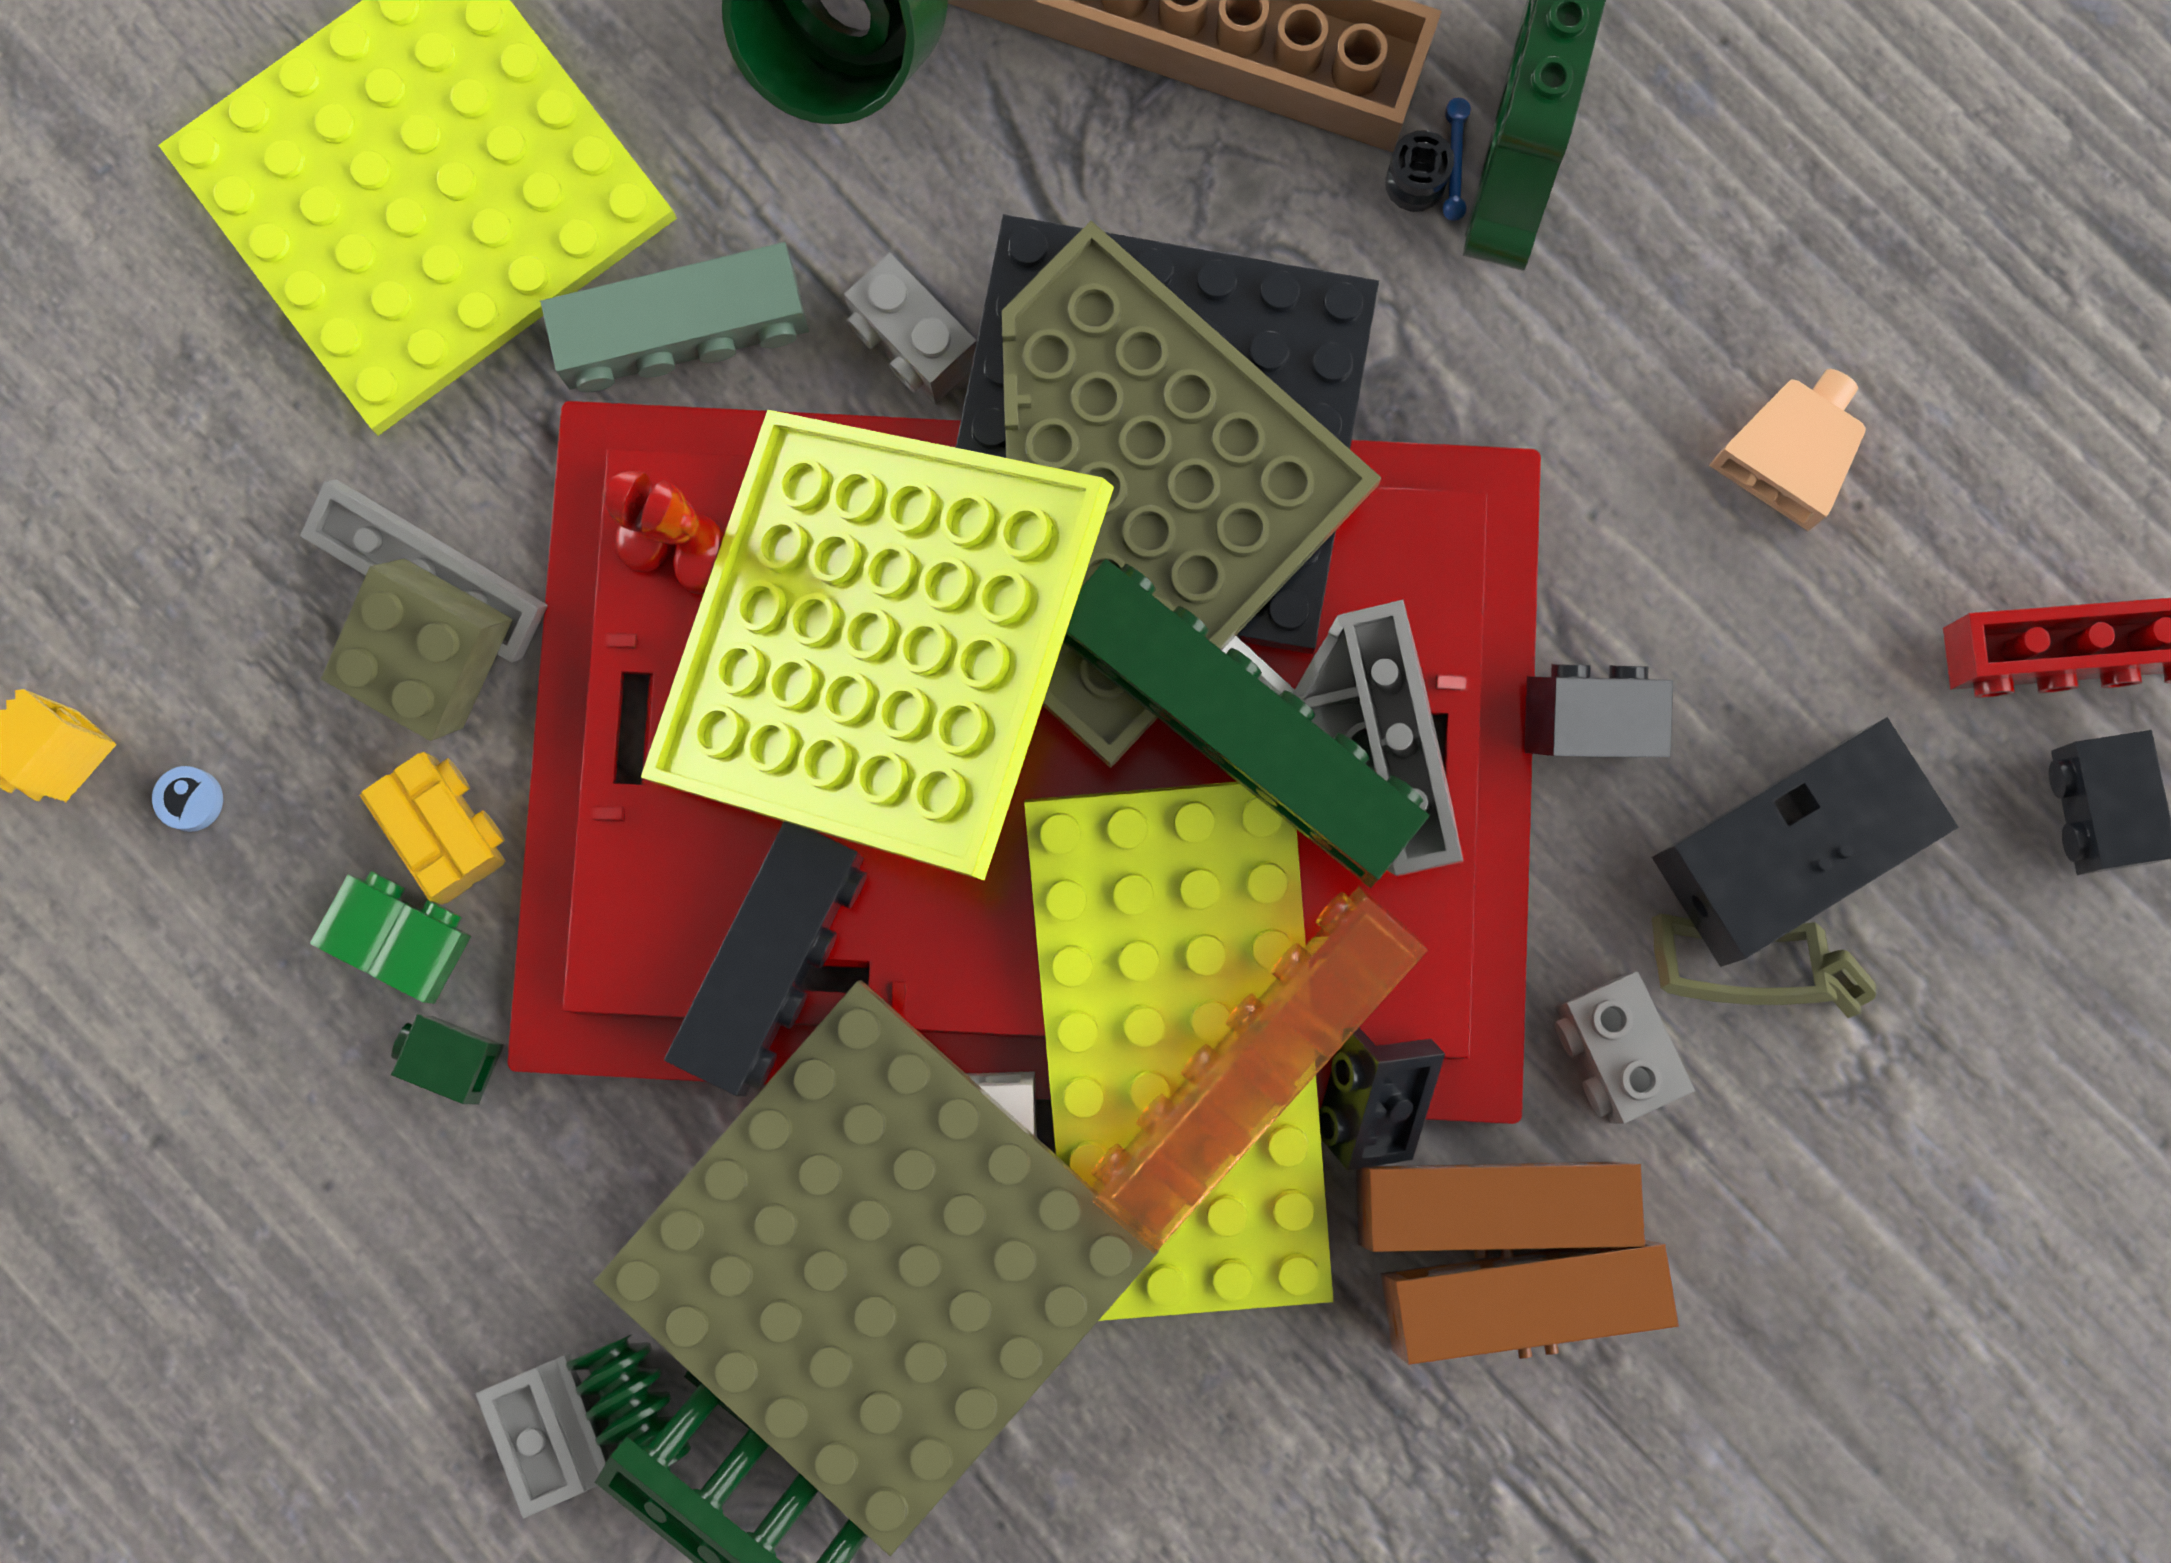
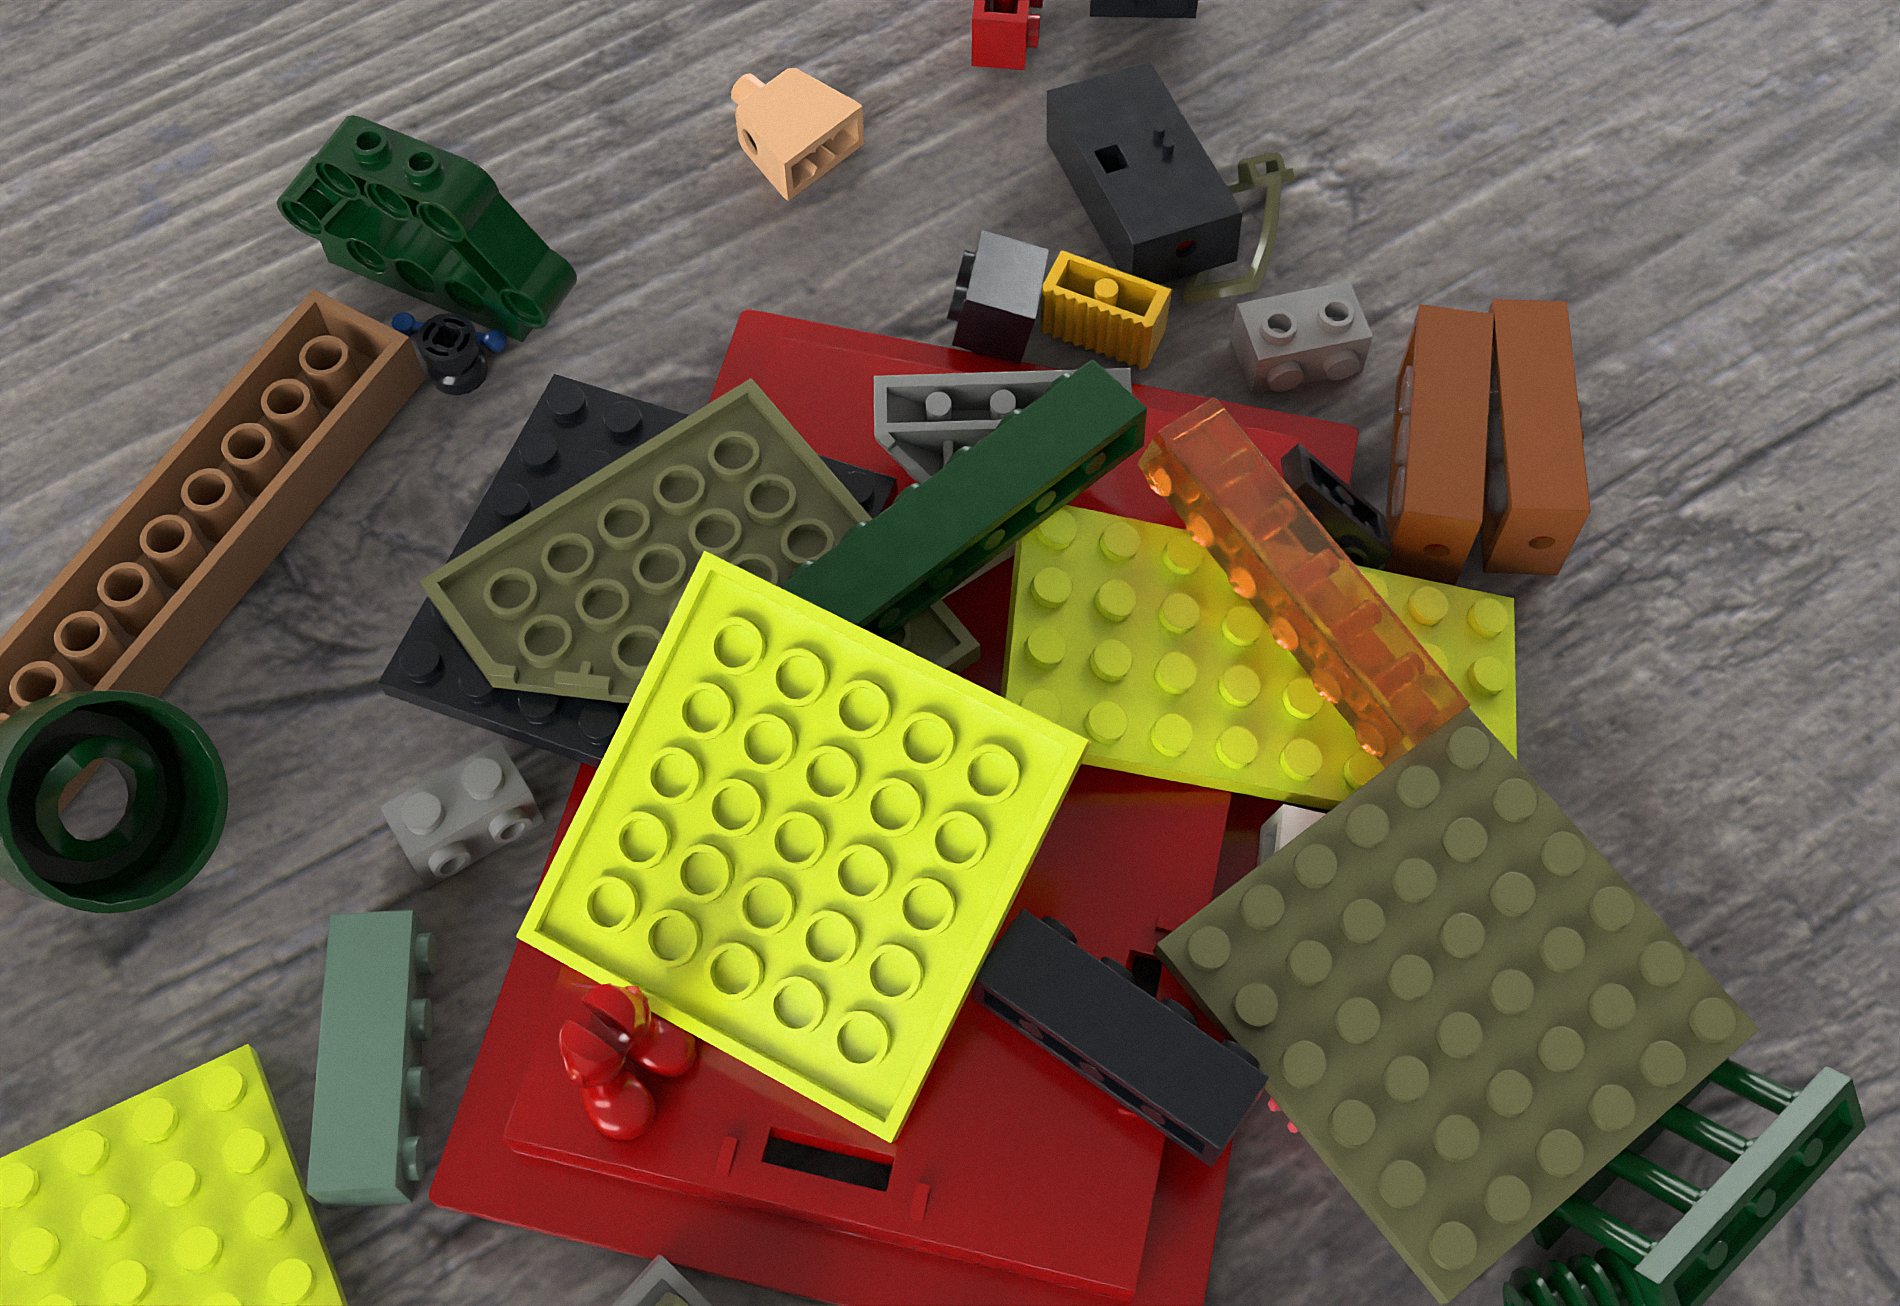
camera: 80 degrees left, 20 degrees down
(1608, 829) = (1104, 309): none -> yellow brick

